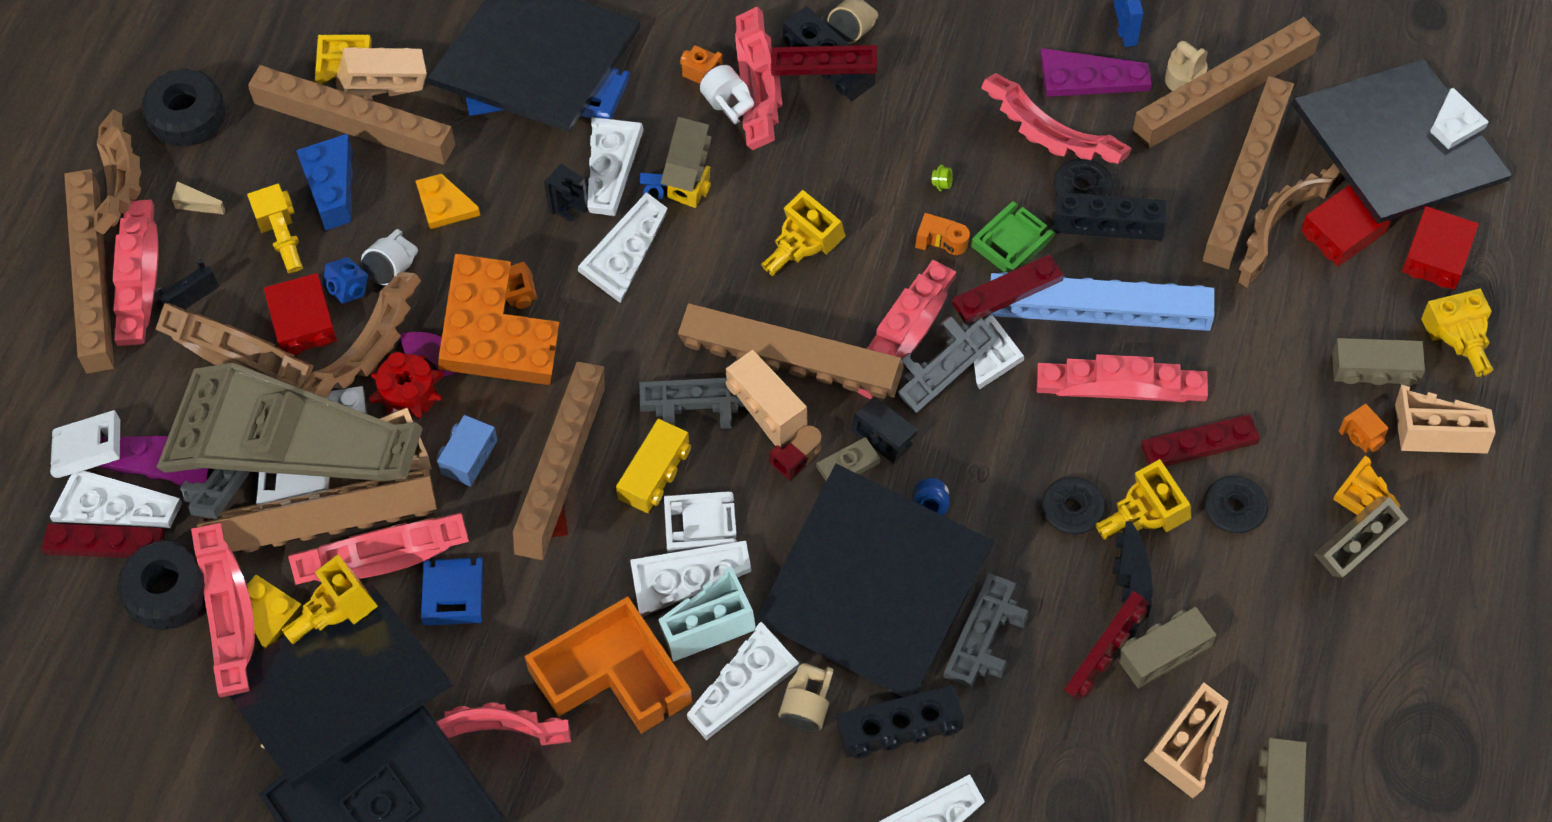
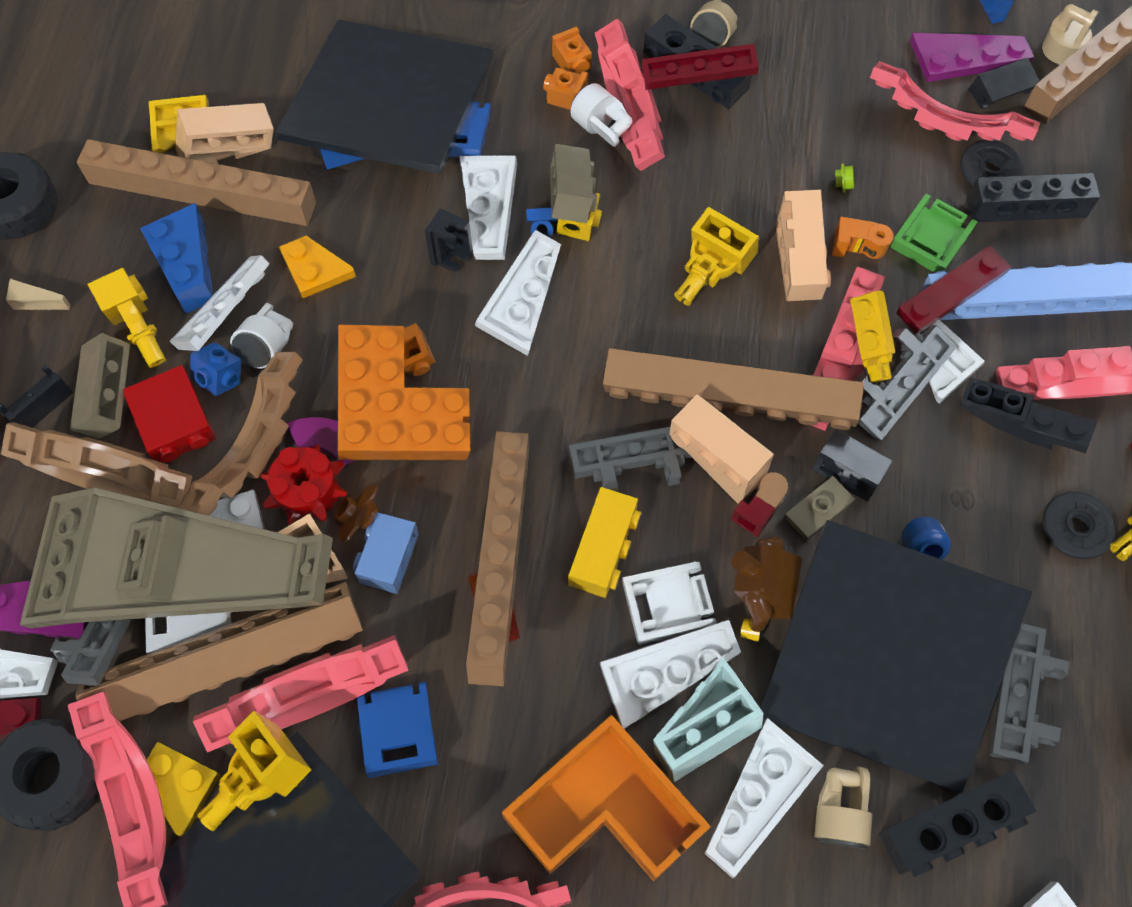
camera: 10 degrees left, 5 degrees up
(244, 283) = (100, 386): none -> dark tan brick
(350, 231) = (216, 309): none -> white wing
(446, 415) = (356, 513): none -> reddish brown plate
(713, 31) = (571, 51): none -> orange brick
(778, 511) = (766, 583): none -> reddish brown torso
(884, 235) = (802, 245): none -> light nougat wedge
(921, 319) = (873, 334): none -> yellow hinge
(1047, 409) = (1021, 417): none -> black slope
(1113, 105) = (1003, 82): none -> black hinge

